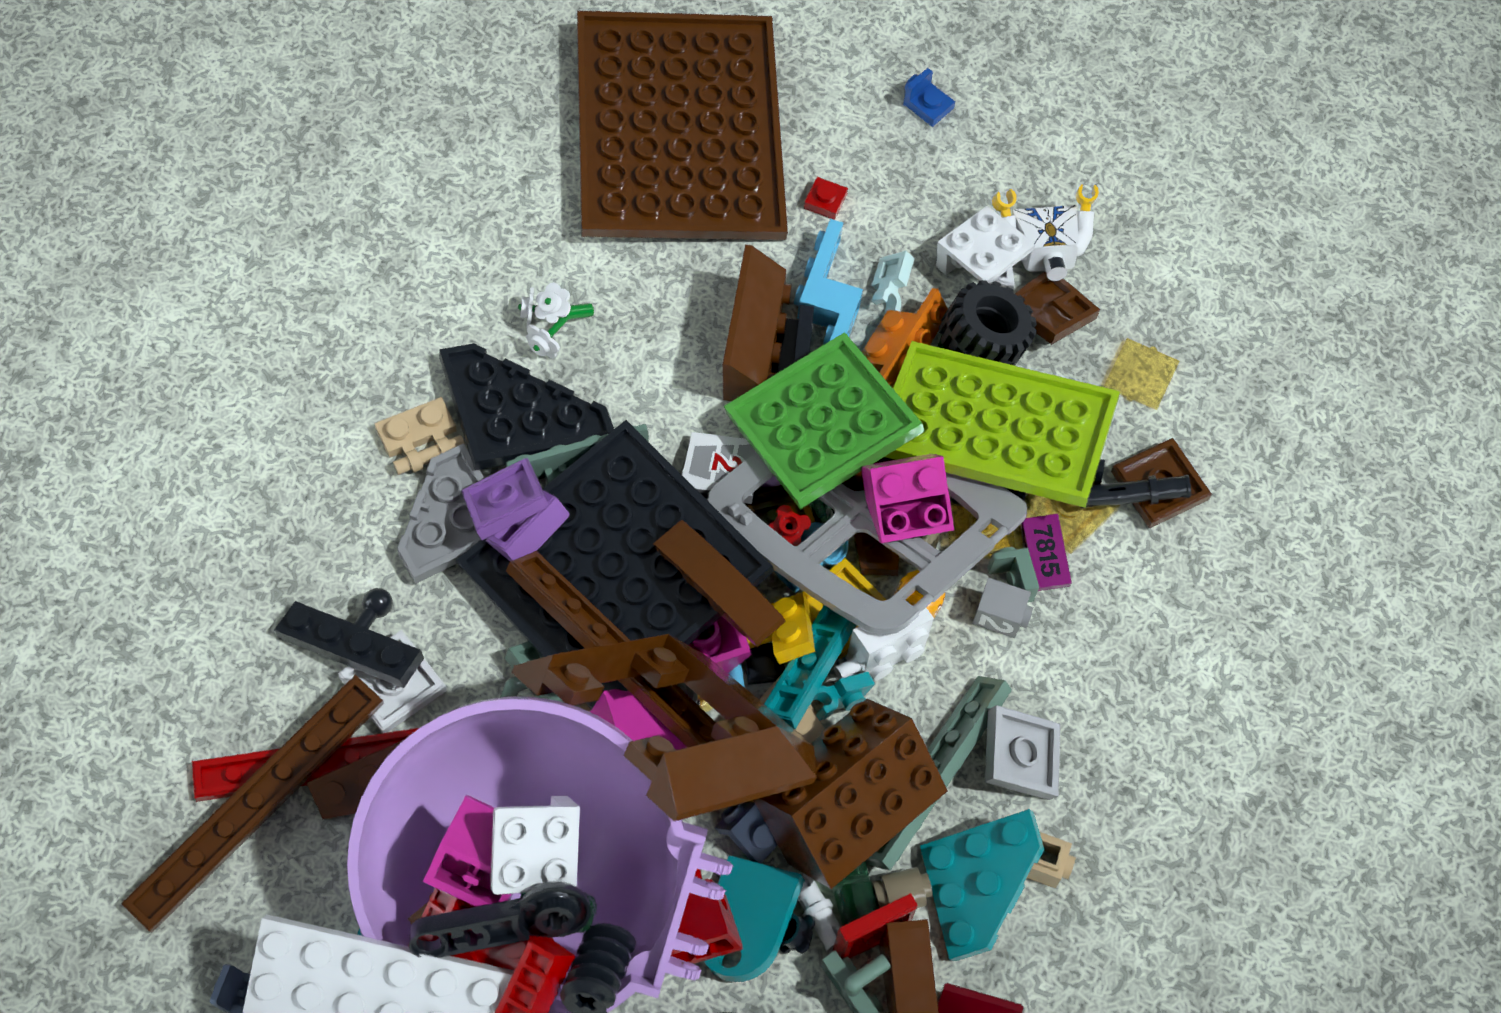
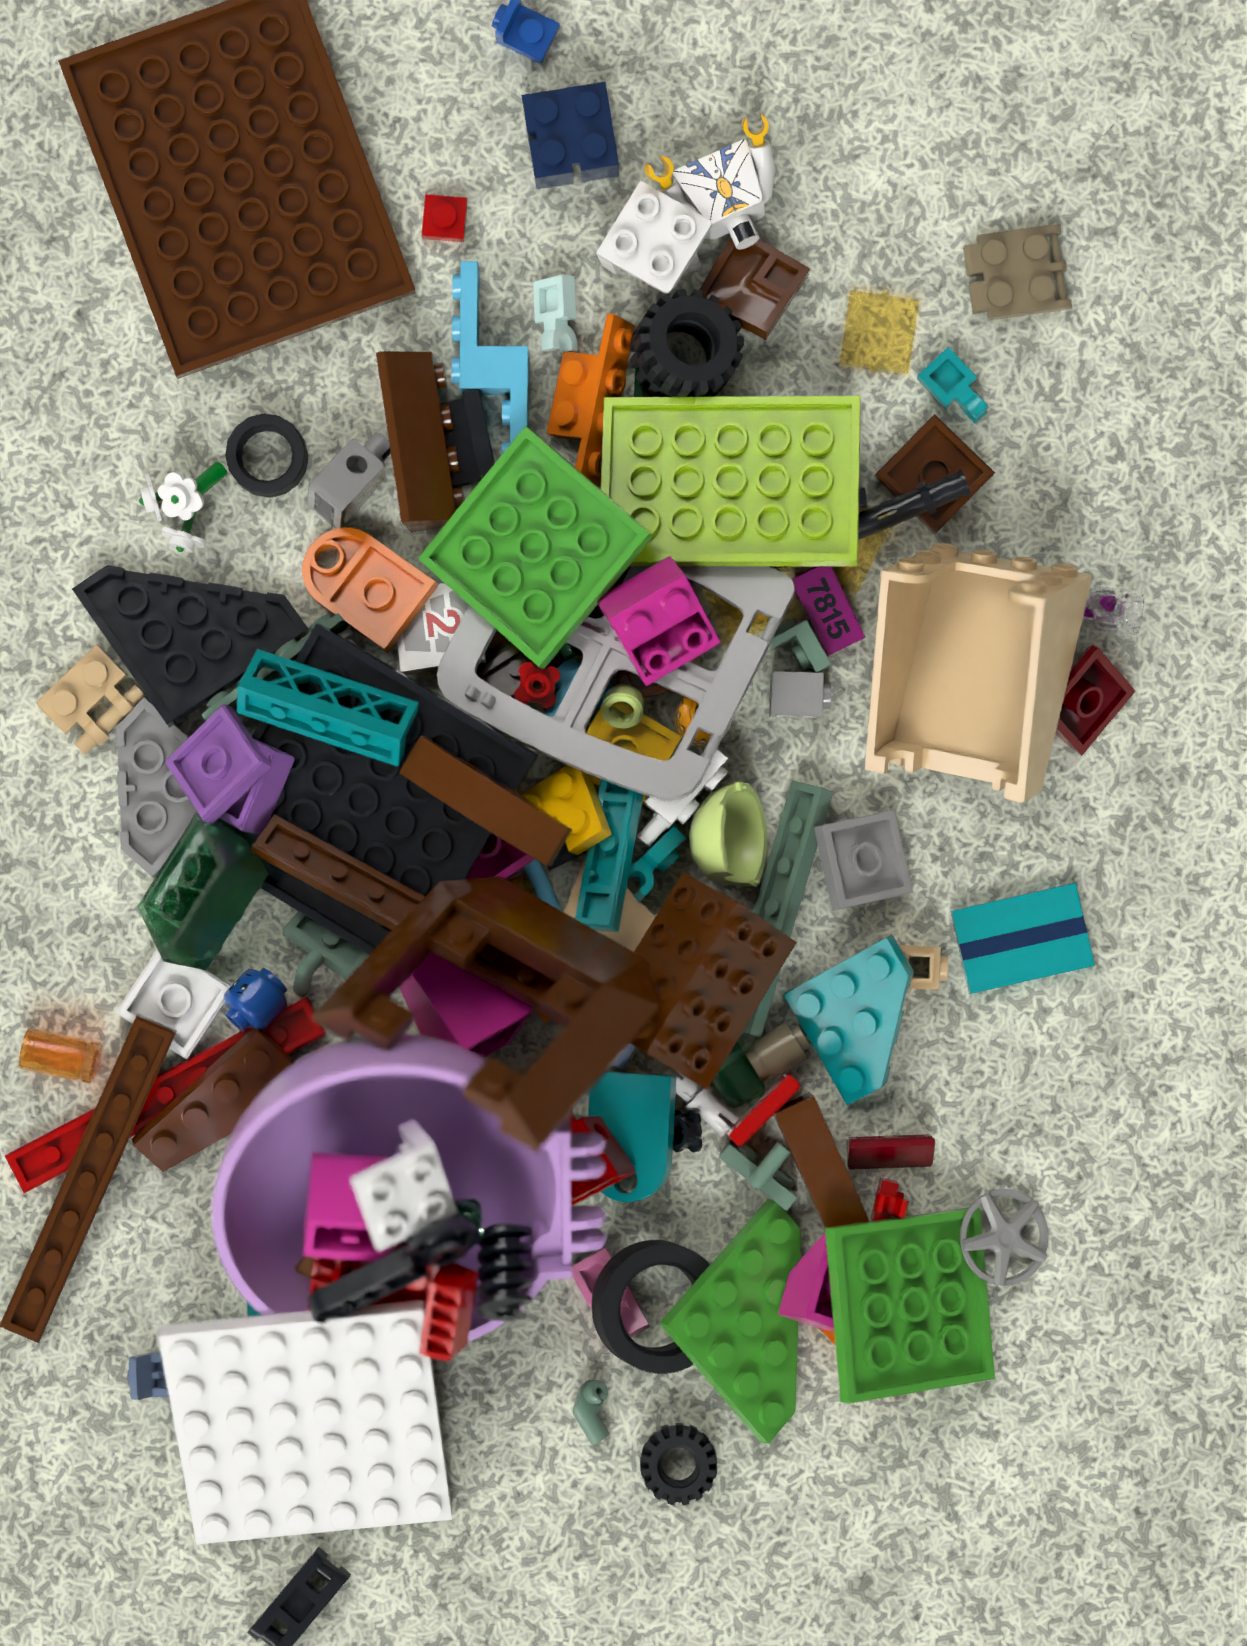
camera: 10 degrees left, 25 degrees up
(276, 693) = (60, 1055): none -> clear orange piece
(353, 642) = (114, 974): black plate -> none
(451, 597) = (201, 893): none -> clear green slope
(458, 691) = (255, 999): none -> blue head
(609, 482) = (320, 713): none -> teal fence
(627, 331) = (249, 428): none -> black tyre
(677, 420) = (368, 585): none -> orange tile
(686, 340) = (337, 491): none -> light grey torso
(855, 557) = (628, 695): none -> yellowish green piece
(916, 687) = (730, 836): none -> yellowish green cylinder
(941, 159) = (570, 130): none -> dark blue piece
(1144, 868) = (1022, 938): none -> teal tile
(1159, 619) = (973, 665): none -> tan windscreen
(1193, 421) = (950, 381): none -> teal plate
(1245, 686) = (1091, 699): none -> dark red slope
(1262, 365) = (1016, 273): none -> dark tan plate
(1283, 627) = (1114, 610): none -> clear rock

